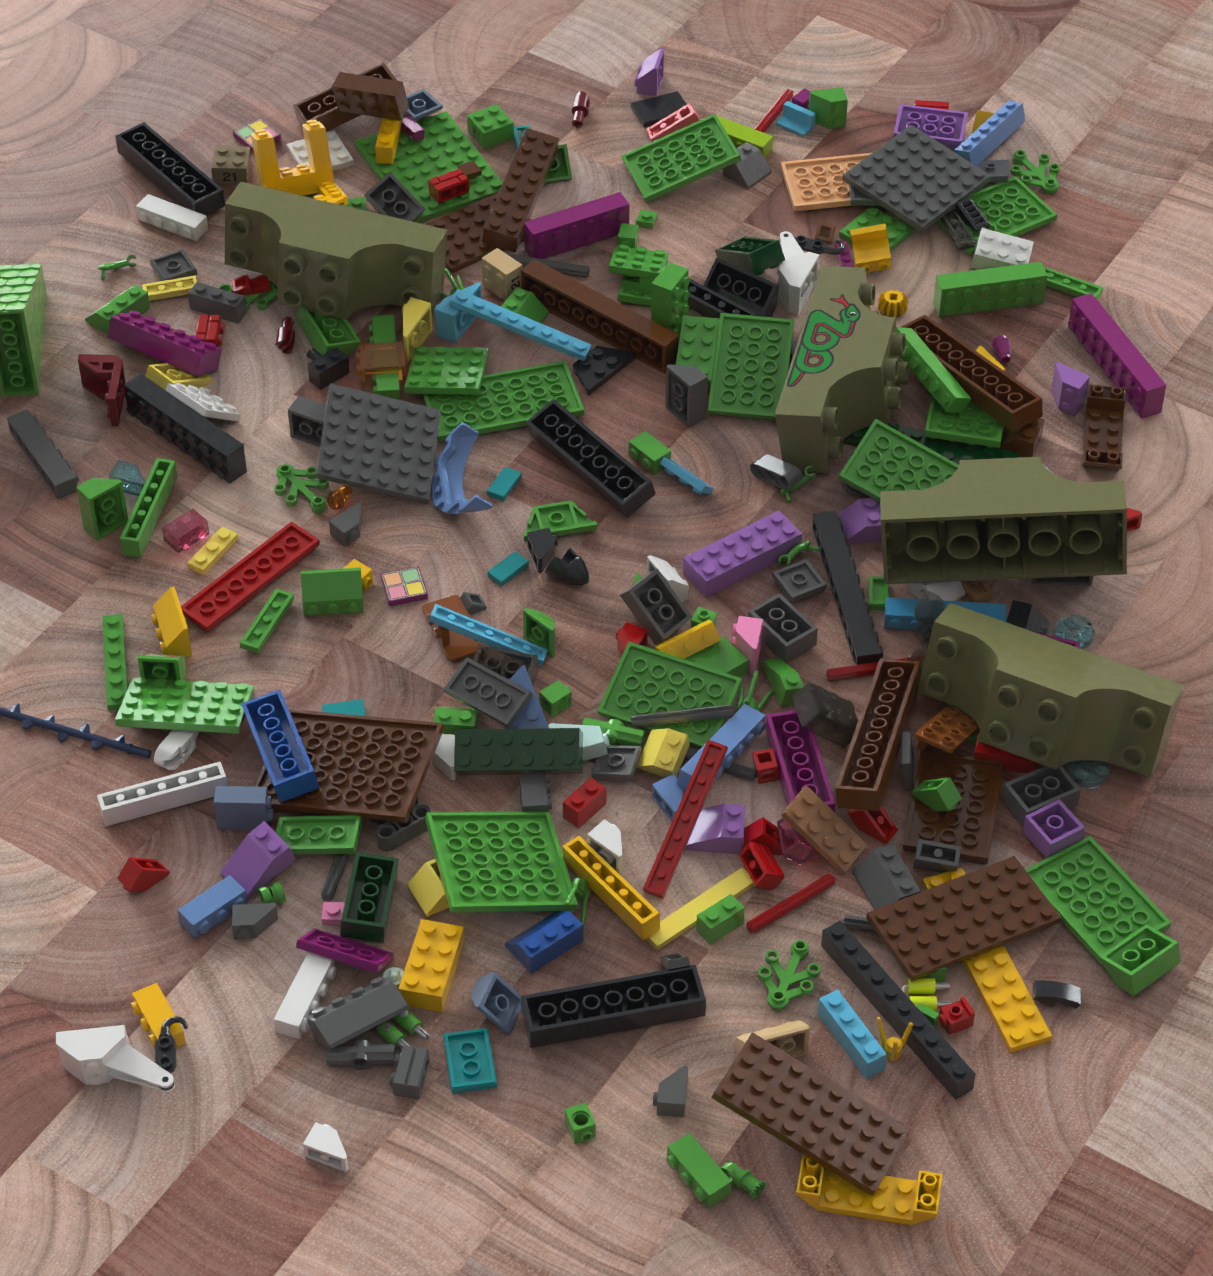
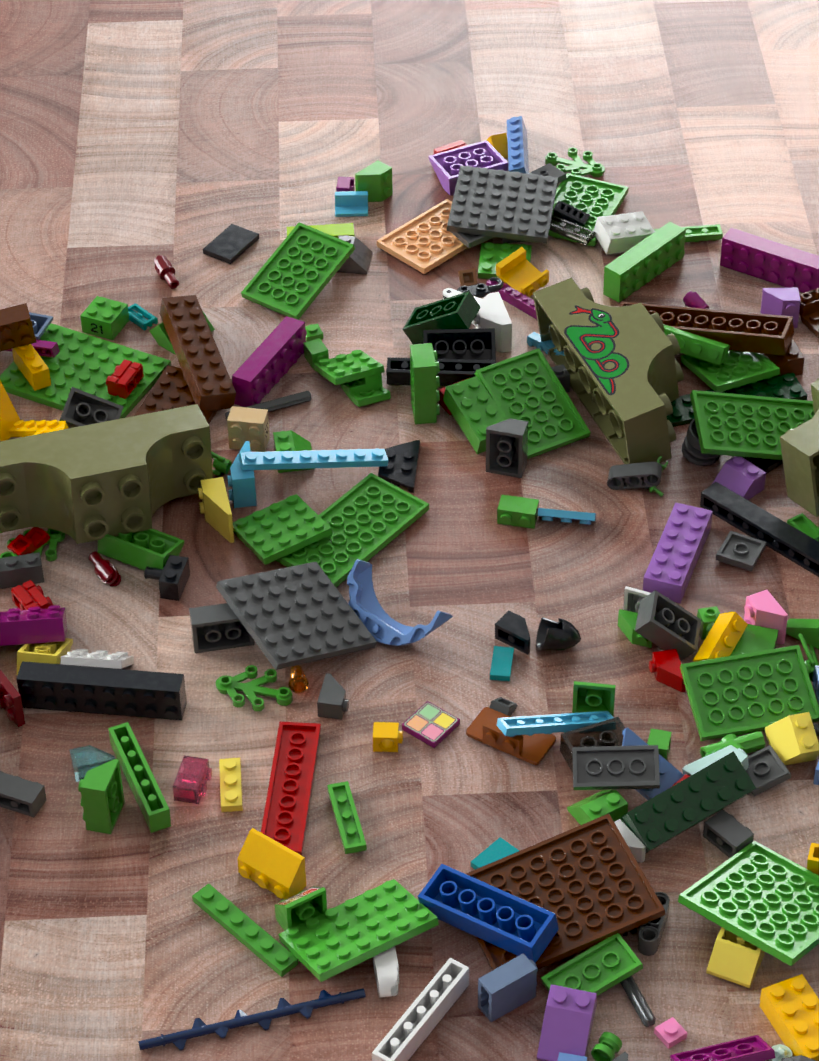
camera: 35 degrees left, 5 degrees down
(332, 591) = (383, 760): bright green slope -> none
(369, 897) = (695, 998): dark green brick -> none
(381, 358) = (217, 546): clear orange panel -> none
(384, 331) = (213, 543): bright green brick -> none
(470, 169) = (127, 355): reddish brown tile -> none
(504, 483) = (423, 597): teal tile -> none
(561, 518) = (499, 599): bright green wing -> none
(584, 802) = (775, 816): red brick -> none
(590, 458) = (480, 538): black brick -> none
(601, 316) = (367, 422): reddish brown brick -> none
(651, 74) = (199, 217): medium lavender slope -> none
(679, 119) = (260, 248): coral slope -> none
(682, 716) = (778, 702): dark grey axle -> none
(774, 111) = (325, 203): red axle -> none
(784, 628) = (785, 587): dark grey brick -> none
(804, 546) = (714, 530): bright green piece -> none

